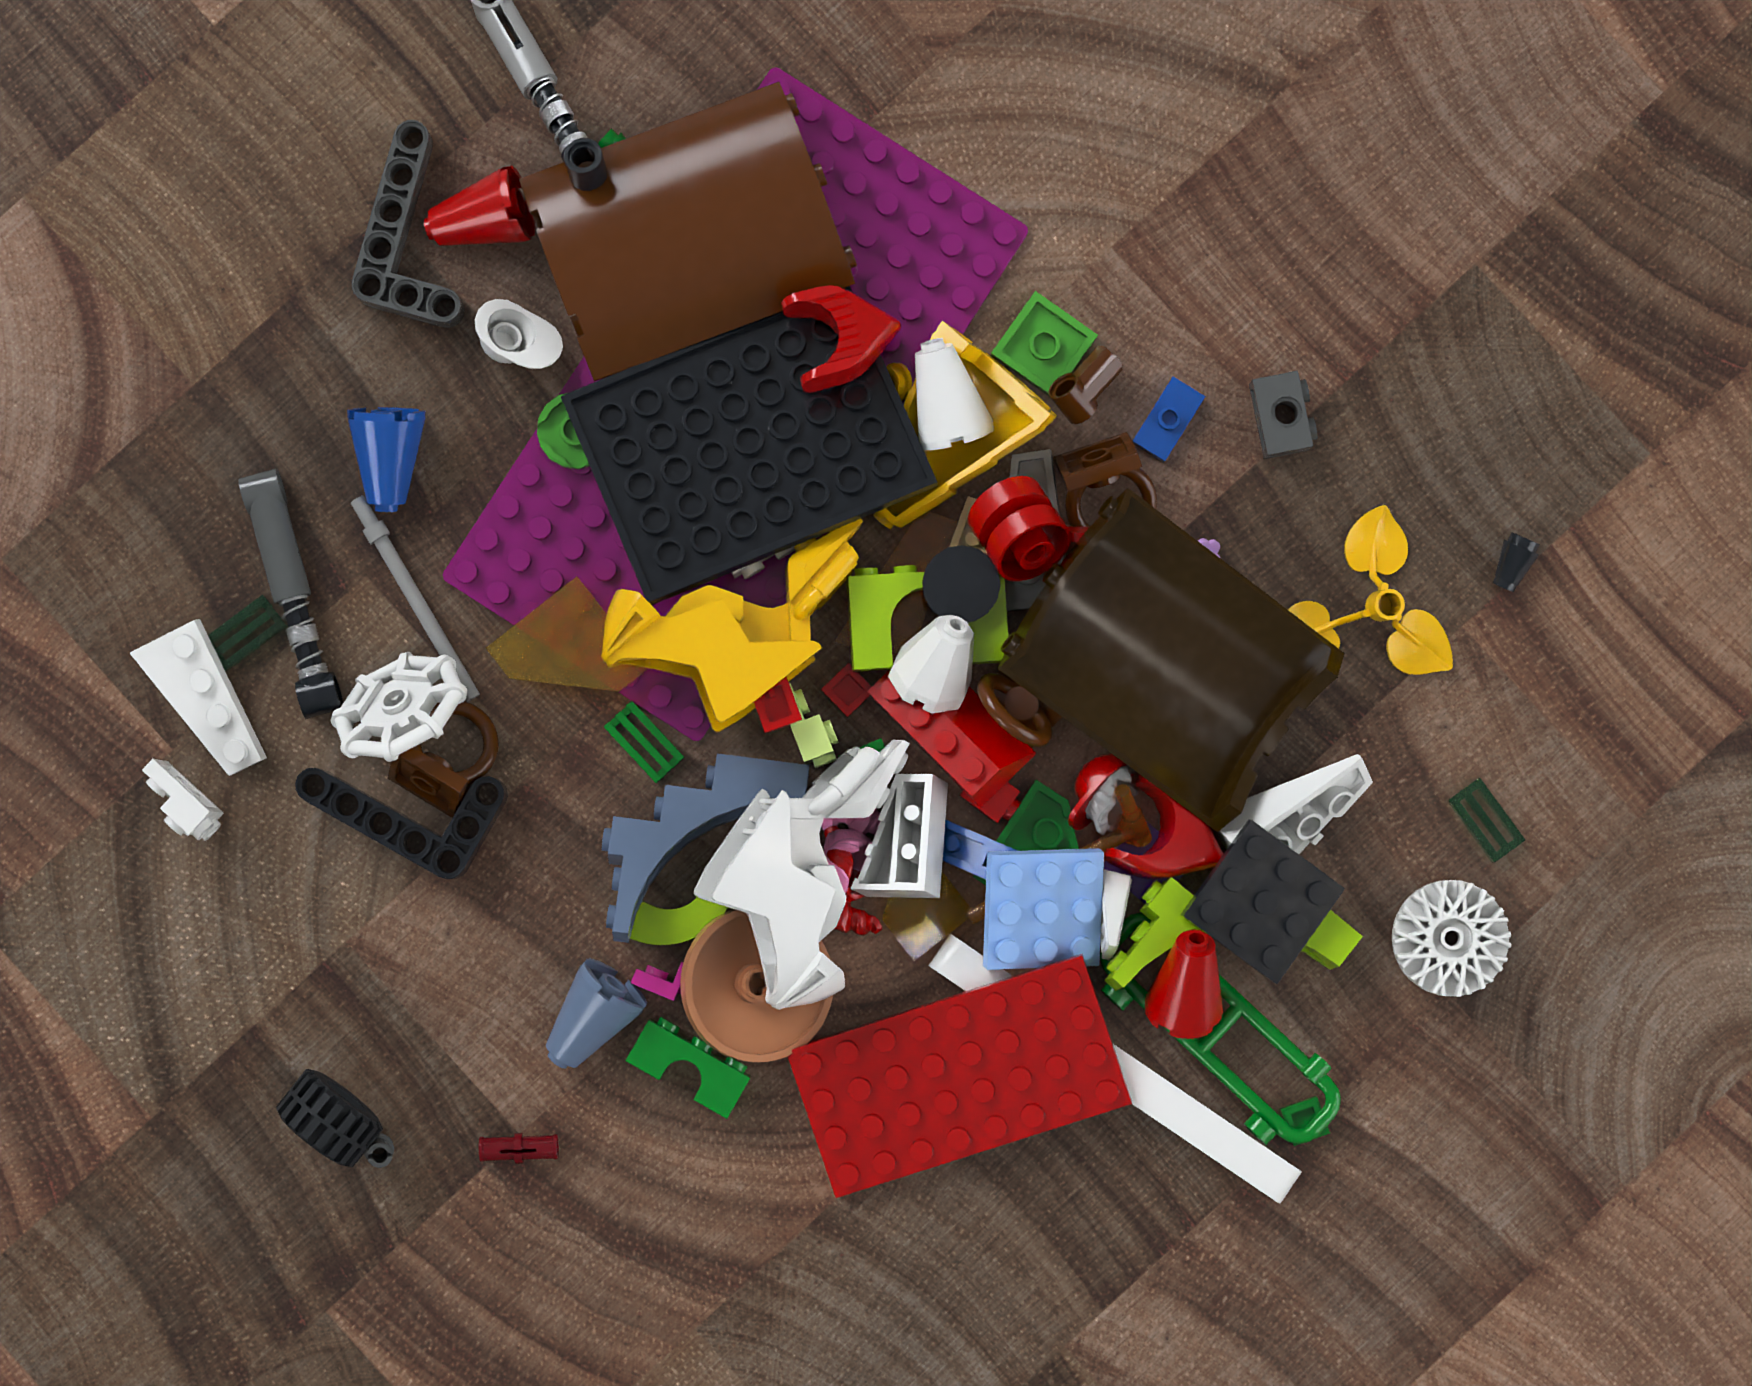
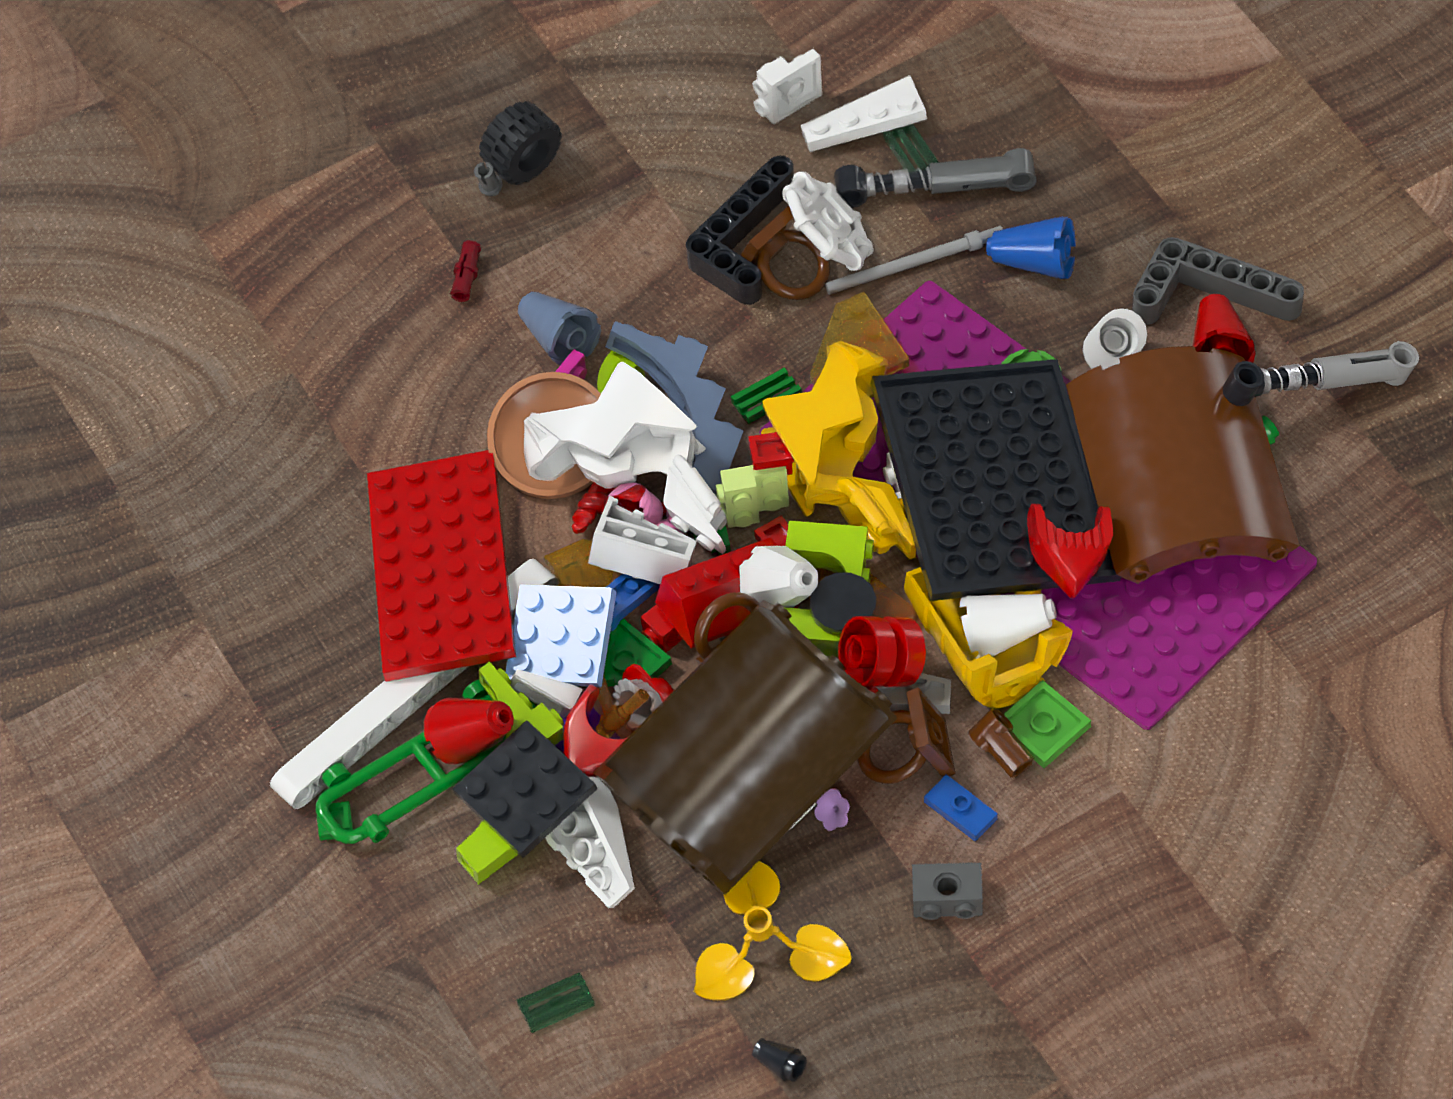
camera: 105 degrees right, 30 degrees down
(720, 1079) = (475, 402): green arch -> none
(1421, 933) = (458, 946): white wheel -> none

